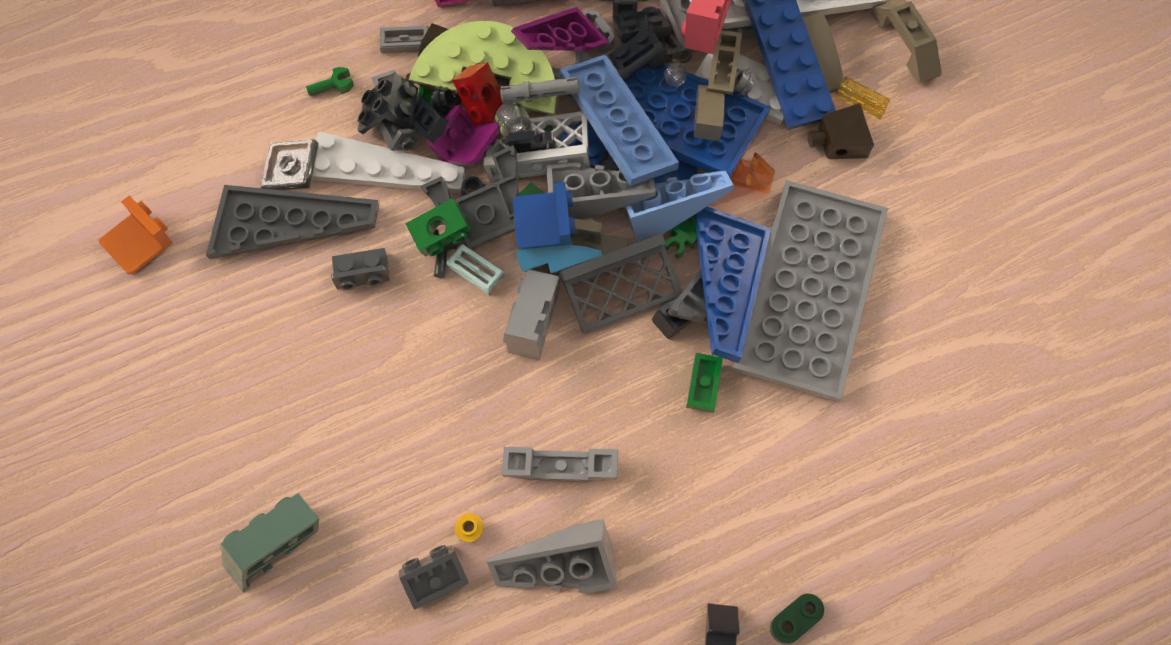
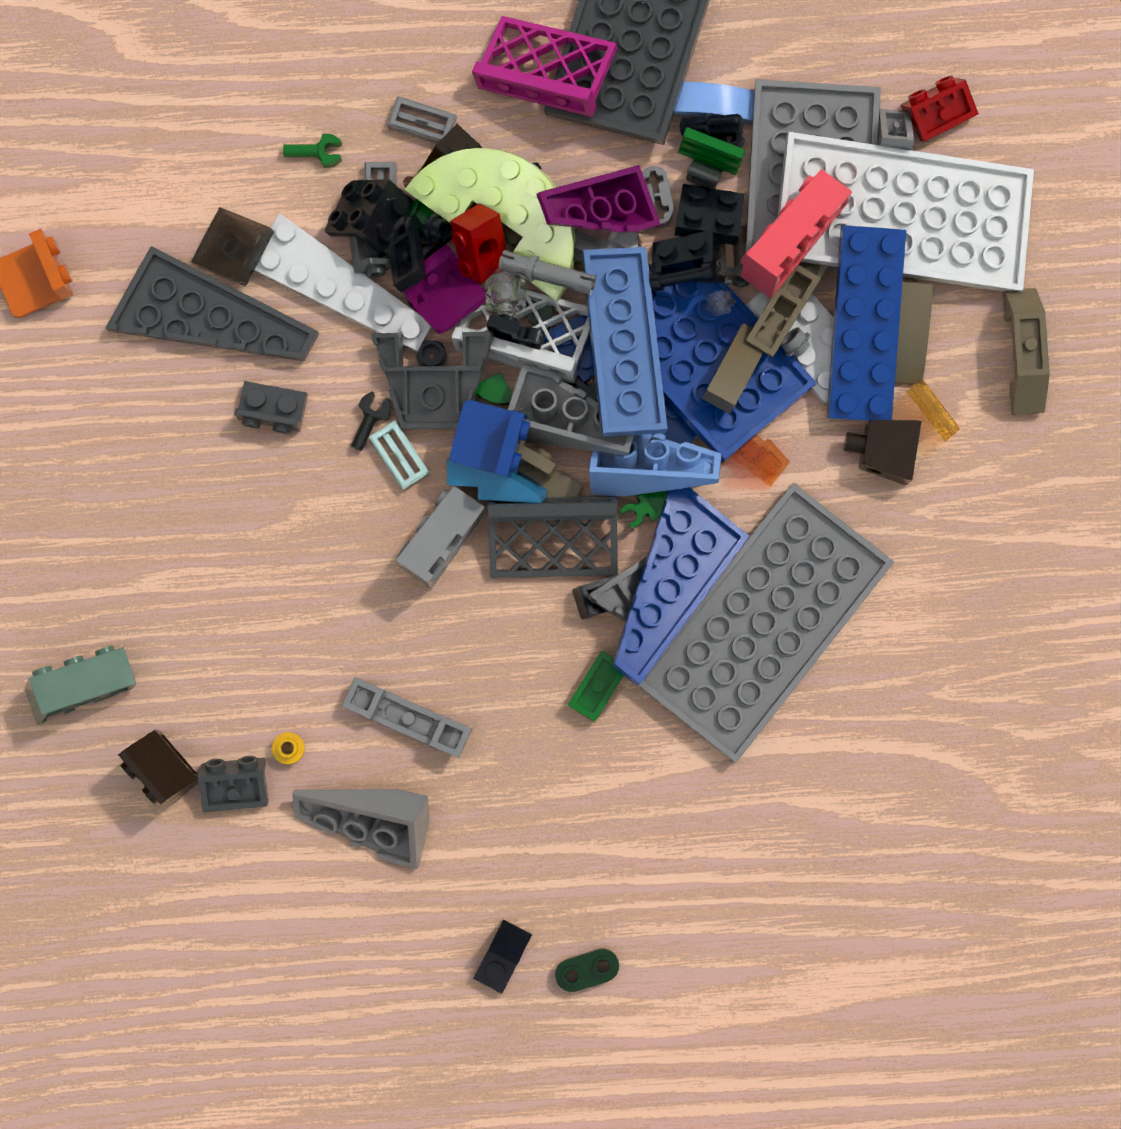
camera: 20 degrees right, 15 degrees up
(364, 582) = (159, 768): none -> dark brown slope
(423, 228) = (354, 394): green brick -> none

